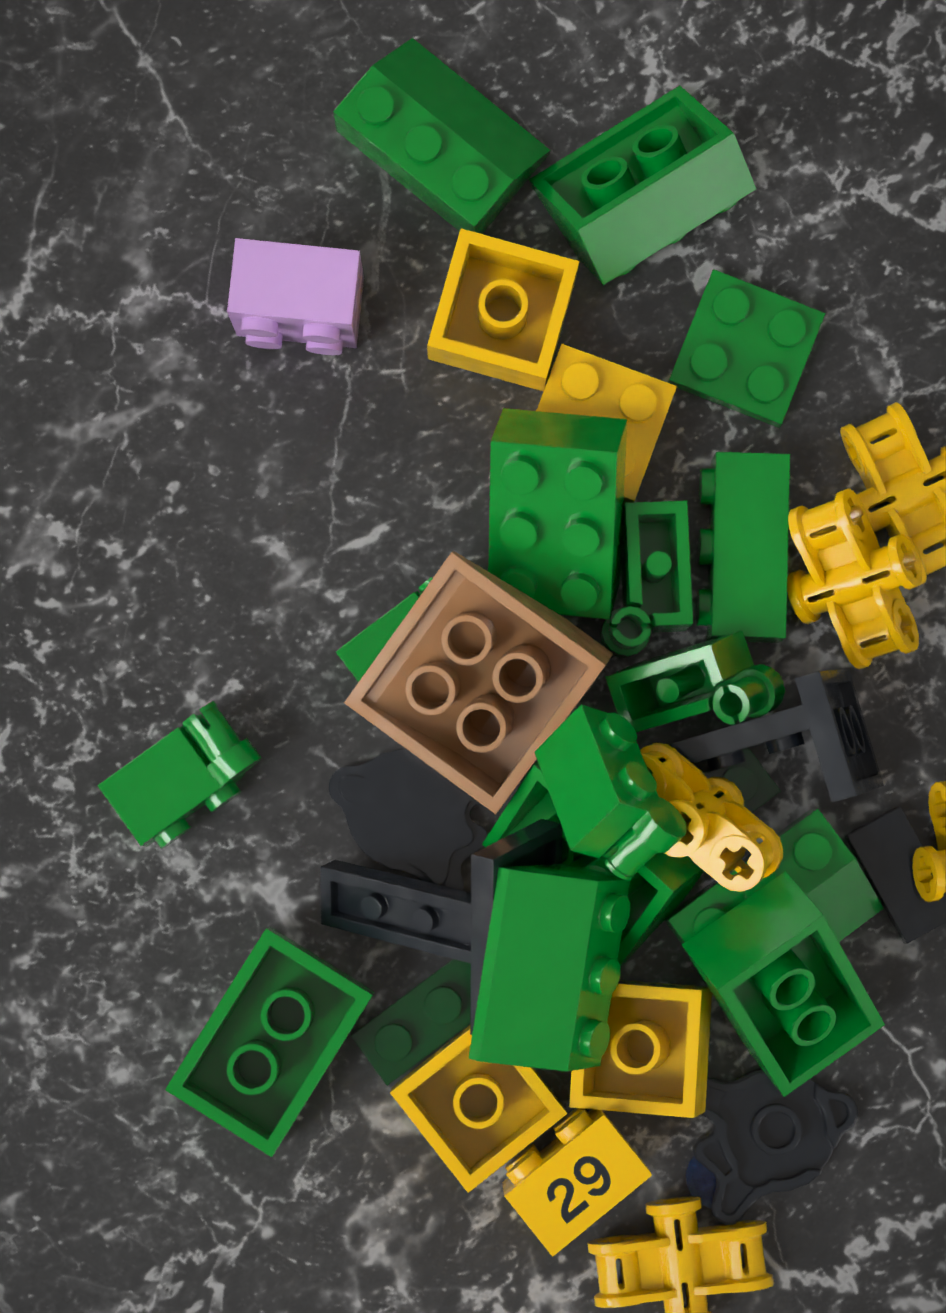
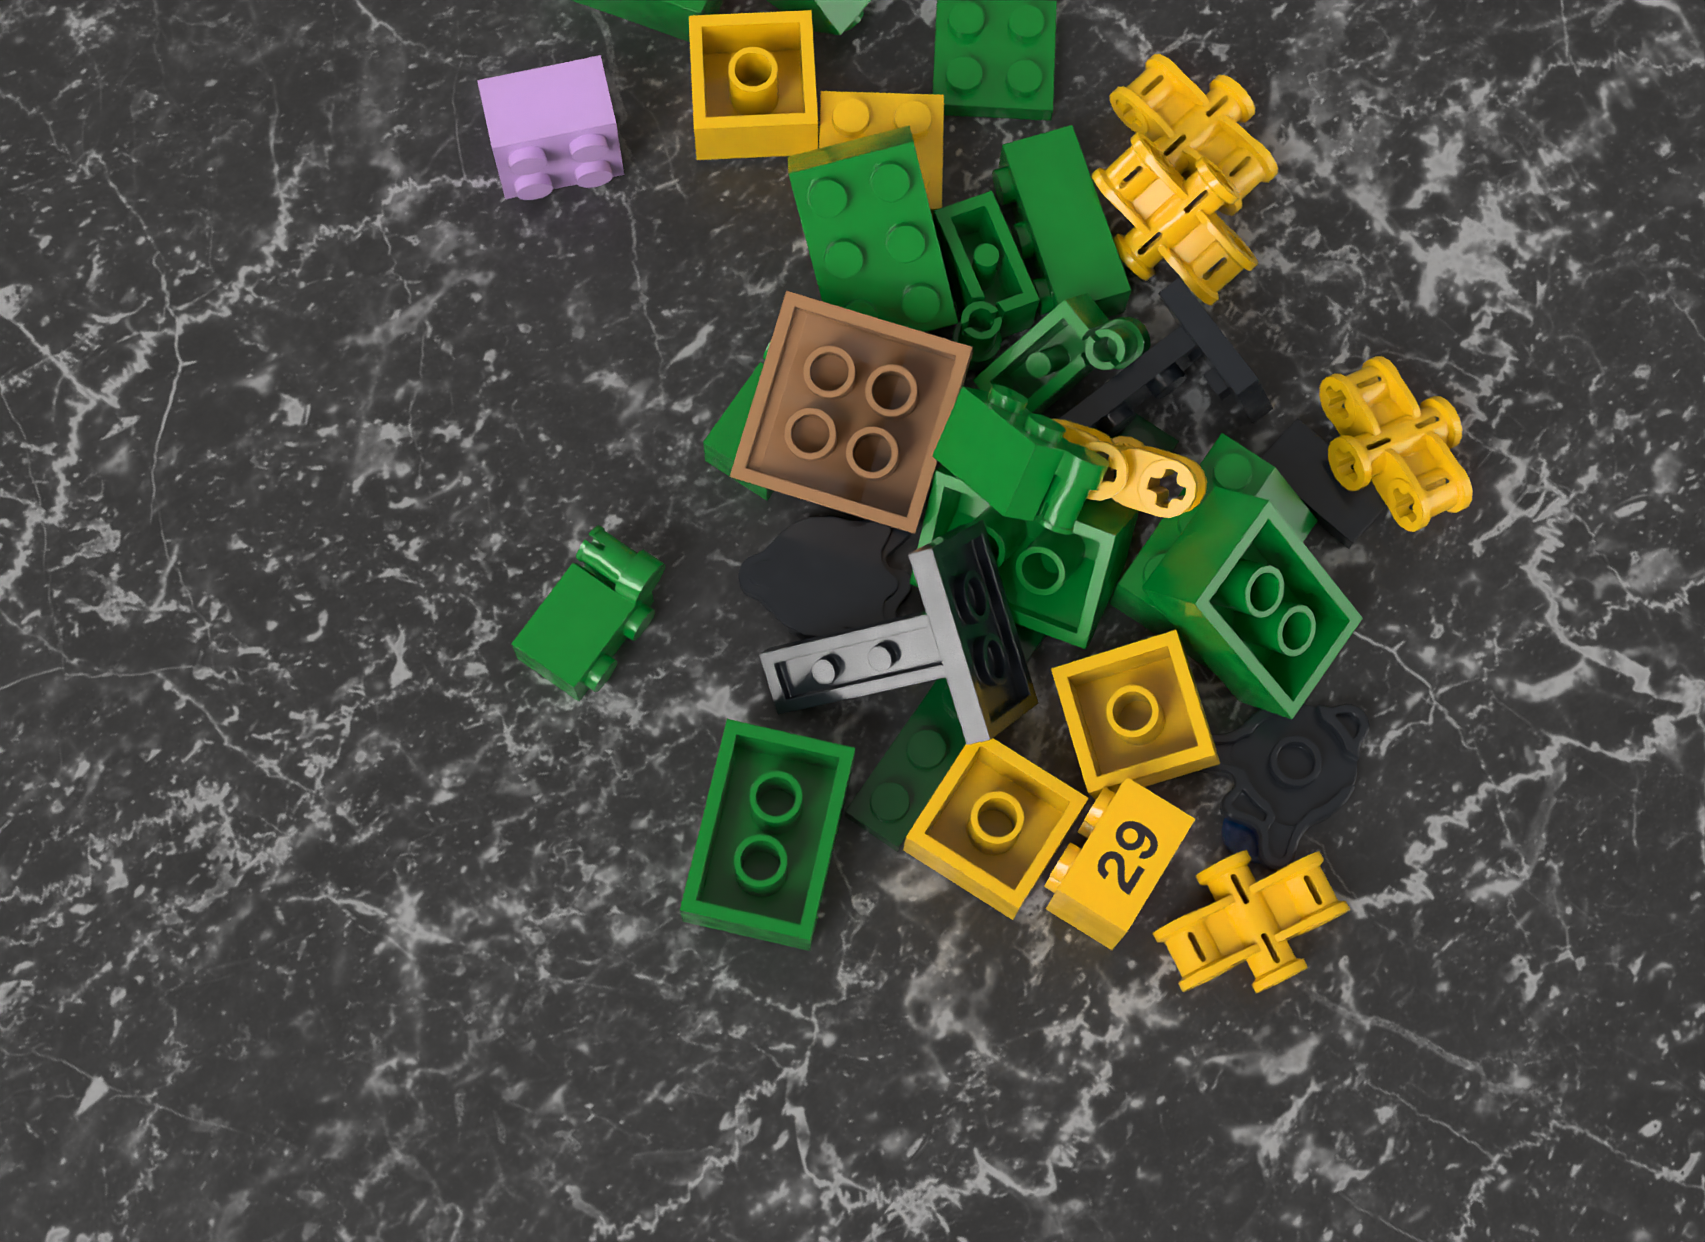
camera: 20 degrees left, 10 degrees down
(550, 967) = (1022, 648): green slope -> none

